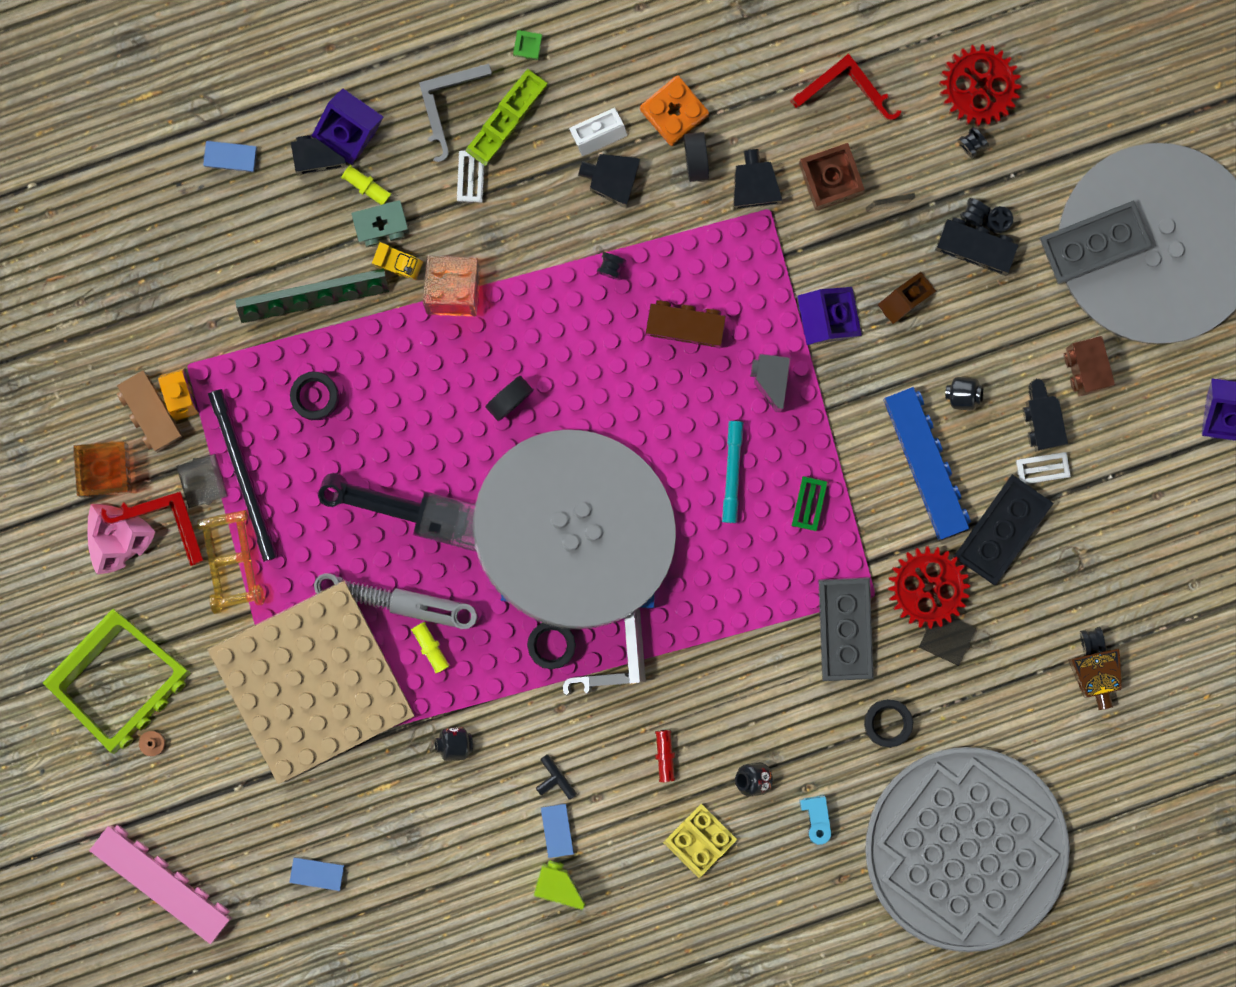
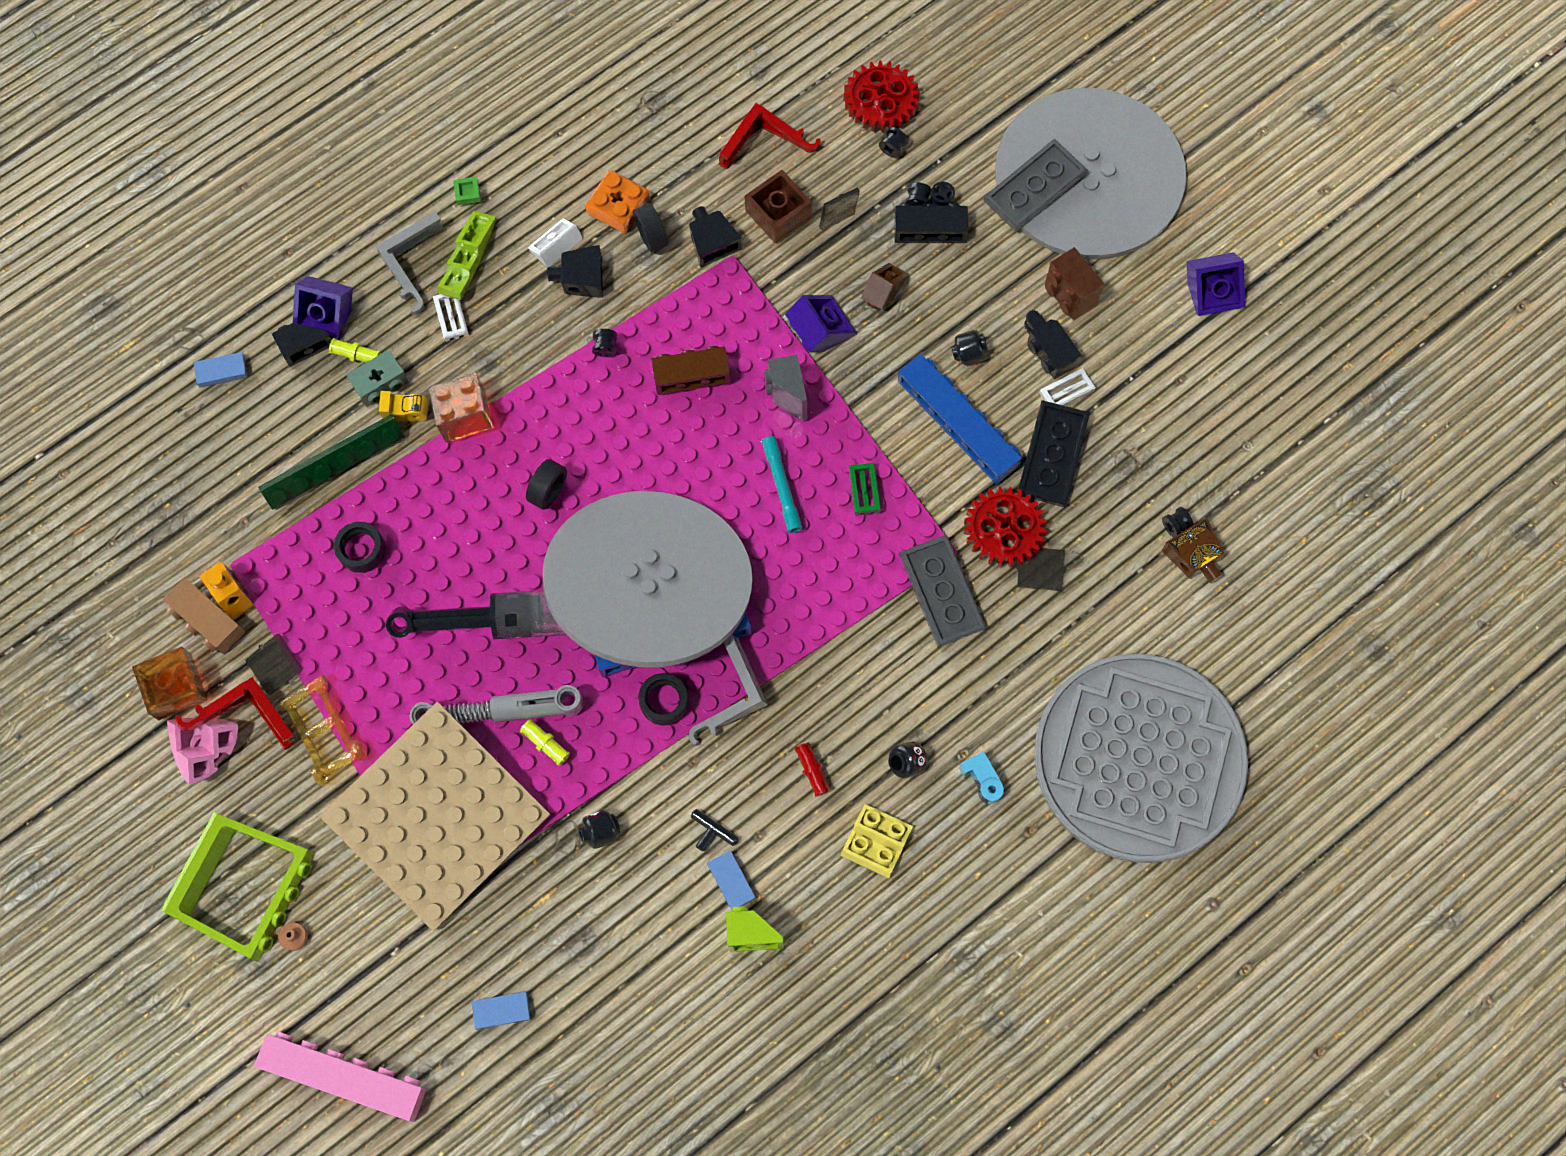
camera: 15 degrees left, 15 degrees down
(222, 413) = (348, 695): black piece -> none
(907, 726) = (1020, 644): black tyre -> none

